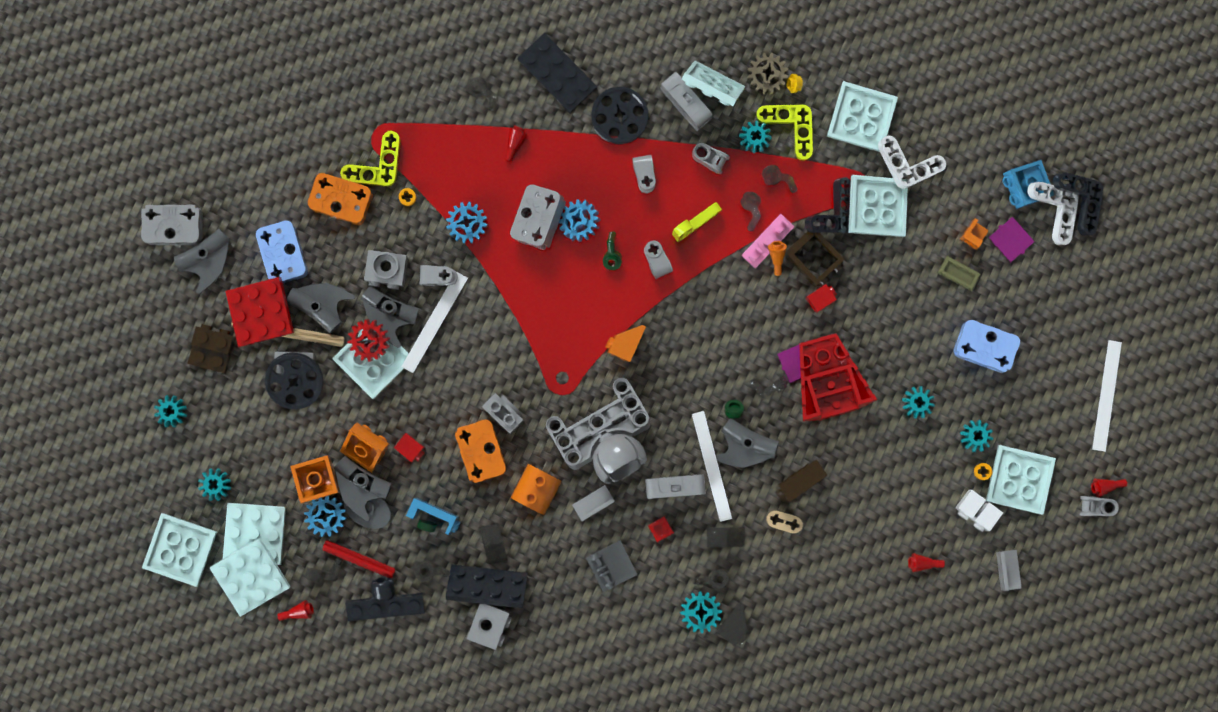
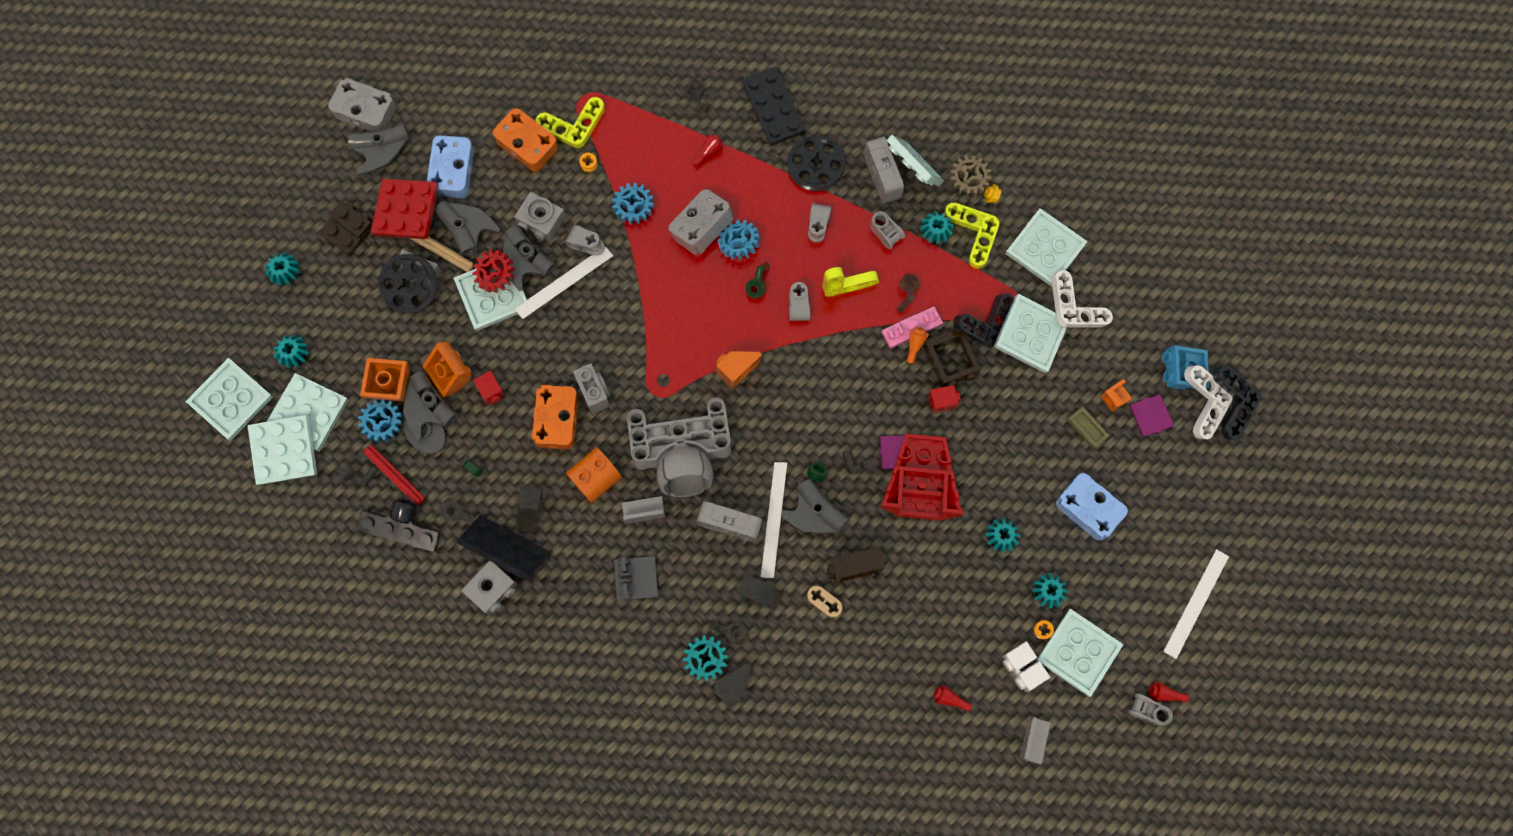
camera: 20 degrees right, 10 degrees down
(301, 611) = (316, 502): red cone -> none
(418, 504) = (469, 444): dark azure panel -> none
(660, 529) = (699, 561): red tile -> none
(773, 175) = (944, 271): clear smoke plate -> none

